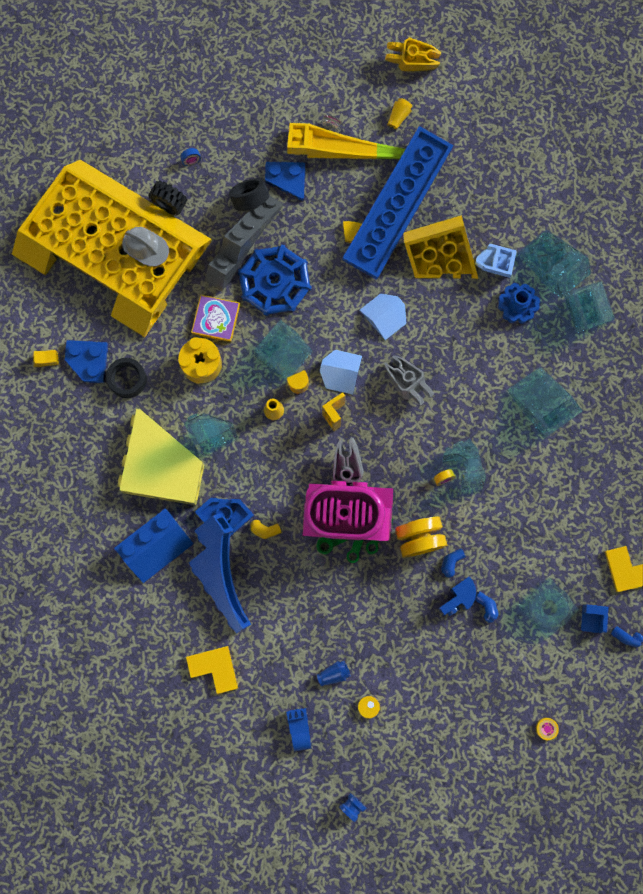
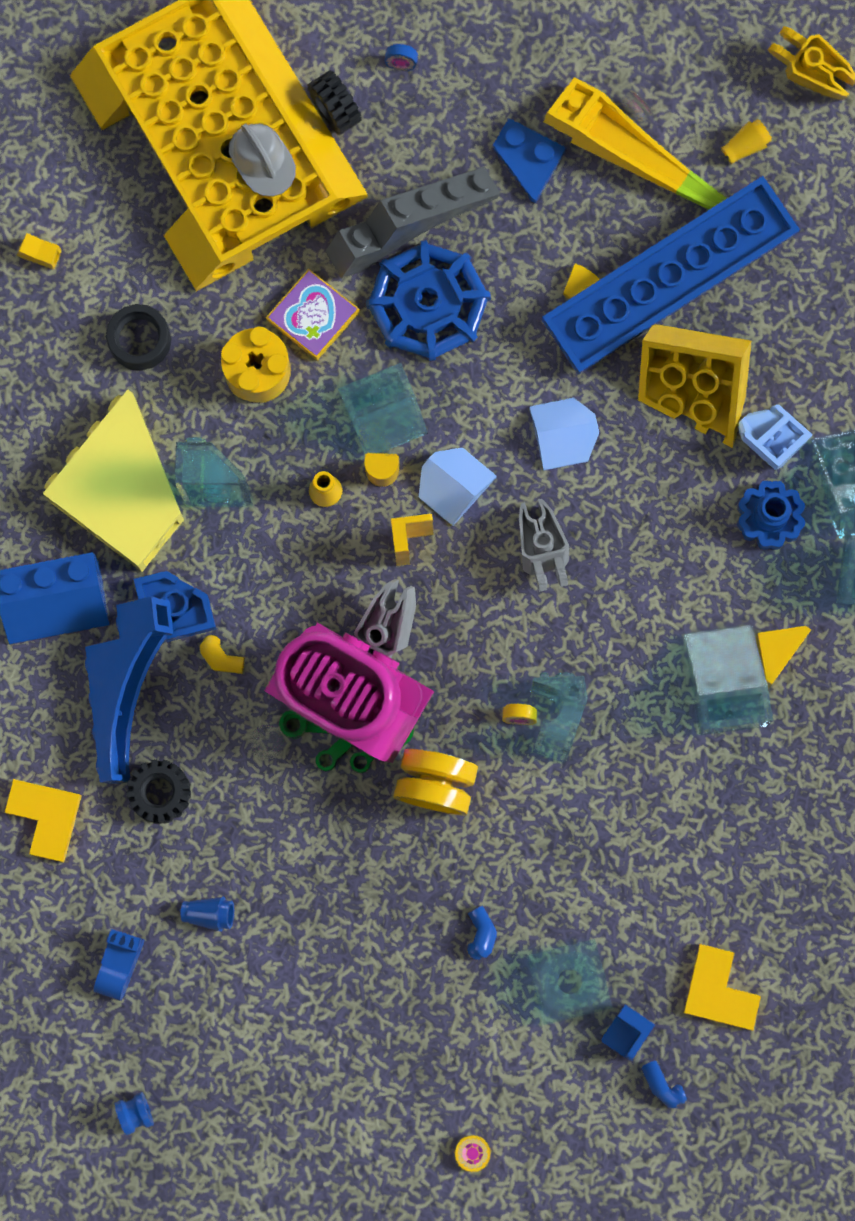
camera: 30 degrees right, 0 degrees up
(87, 359) = (98, 283): blue plate -> none
(249, 194) = (455, 155): black tyre -> none
(257, 621) = (149, 773): none -> black tyre
(368, 707) = (233, 986): yellow tile -> none
(449, 562) = (461, 841): blue arm -> none
(464, 595) = (456, 899): blue brick -> none
(563, 371) = (777, 649): none -> yellow slope

